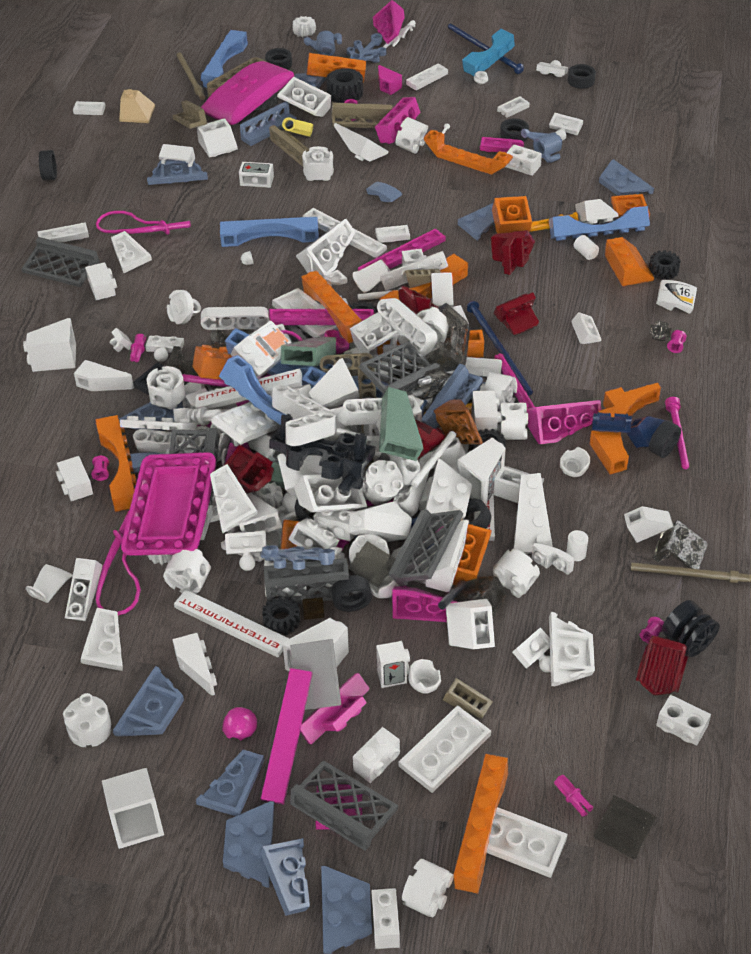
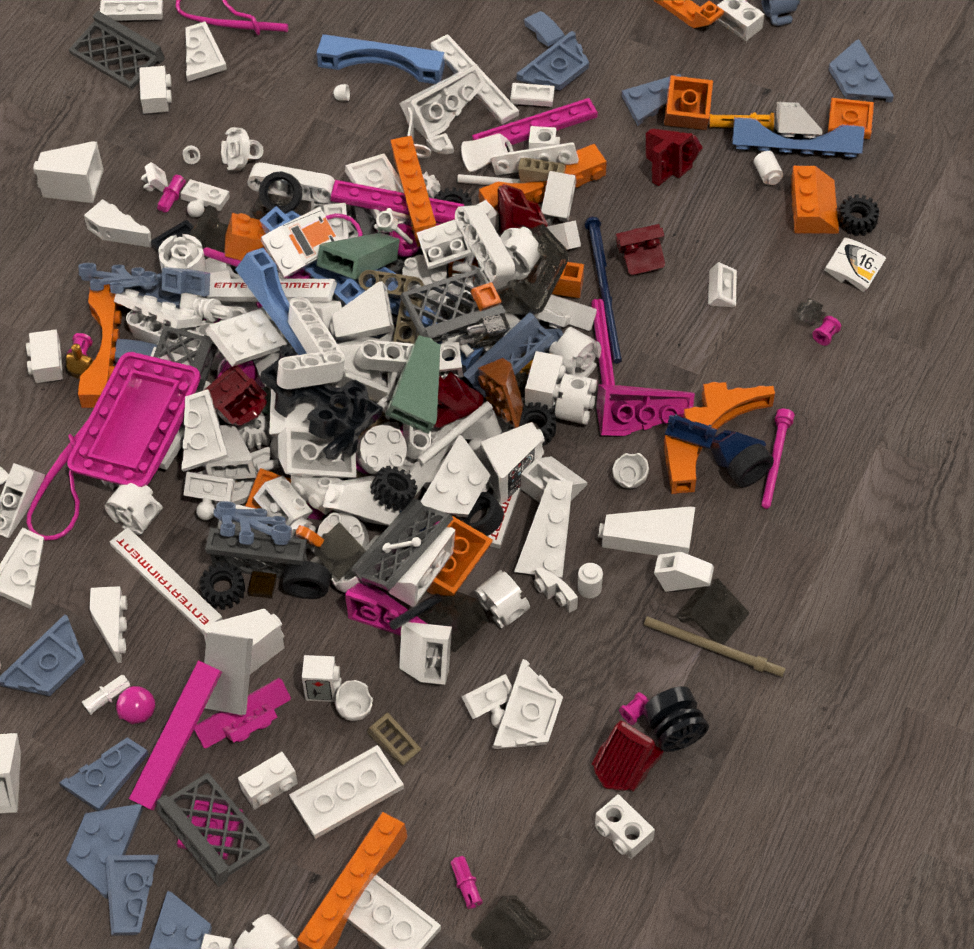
camera: 15 degrees right, 10 degrees up
(103, 477) = (77, 362): none -> pearl gold piece
(118, 411) = (118, 278): none -> sand blue plant
(147, 317) = (186, 155): none -> white hinge
(176, 399) = (185, 280): none -> sand blue slope
(211, 721) = (106, 694): none -> white axle
(229, 310) = (269, 179): none -> black tyre
(324, 326) = (388, 222): none -> white plant
(351, 557) = (311, 537): none -> orange tile
(402, 505) = (393, 488): none -> black tyre
(403, 211) = (557, 64): none -> sand blue wing
(414, 550) = (388, 547): none -> white hinge
(421, 358) = (486, 296): none -> orange tile
(606, 501) = (649, 531): none -> white slope

